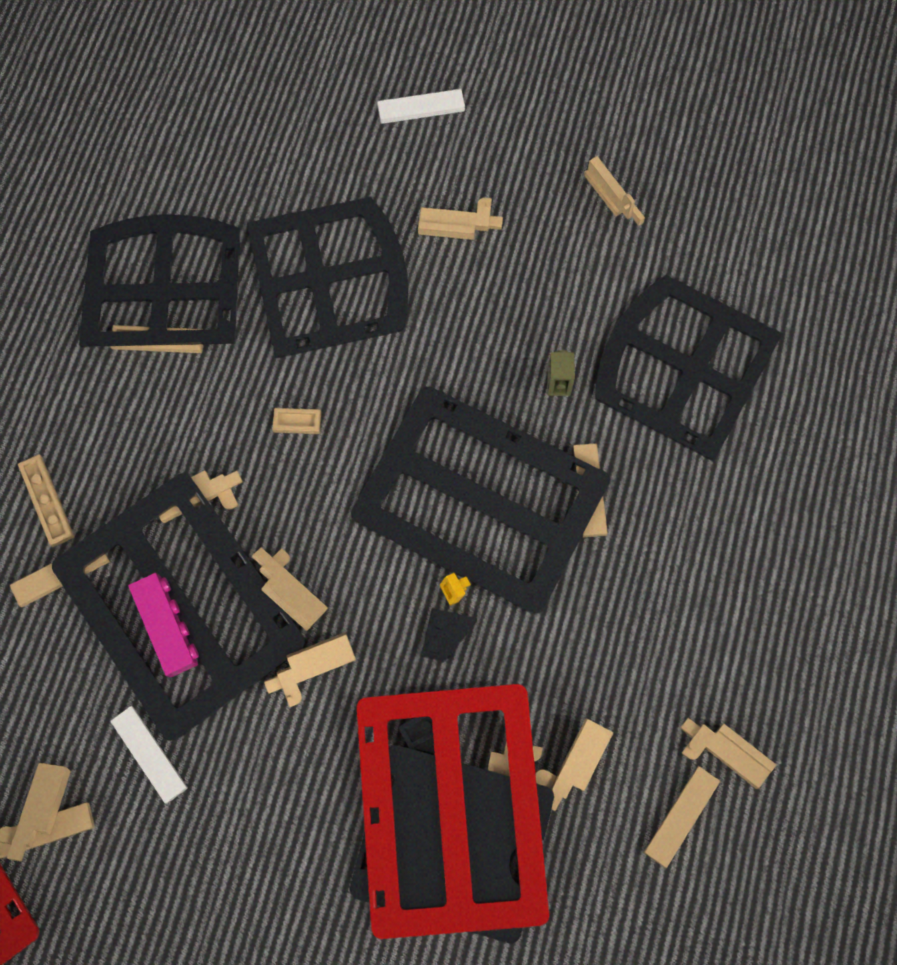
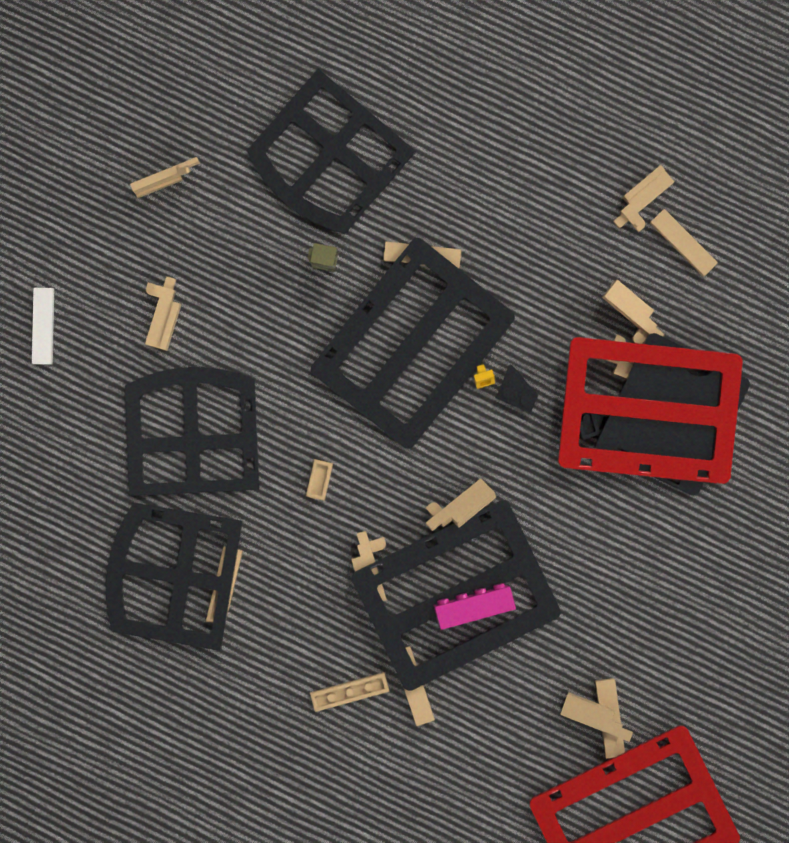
camera: 80 degrees left, 15 degrees up
(149, 754) = (568, 631): white tile -> none
(310, 663) = (521, 498): tan piece -> none

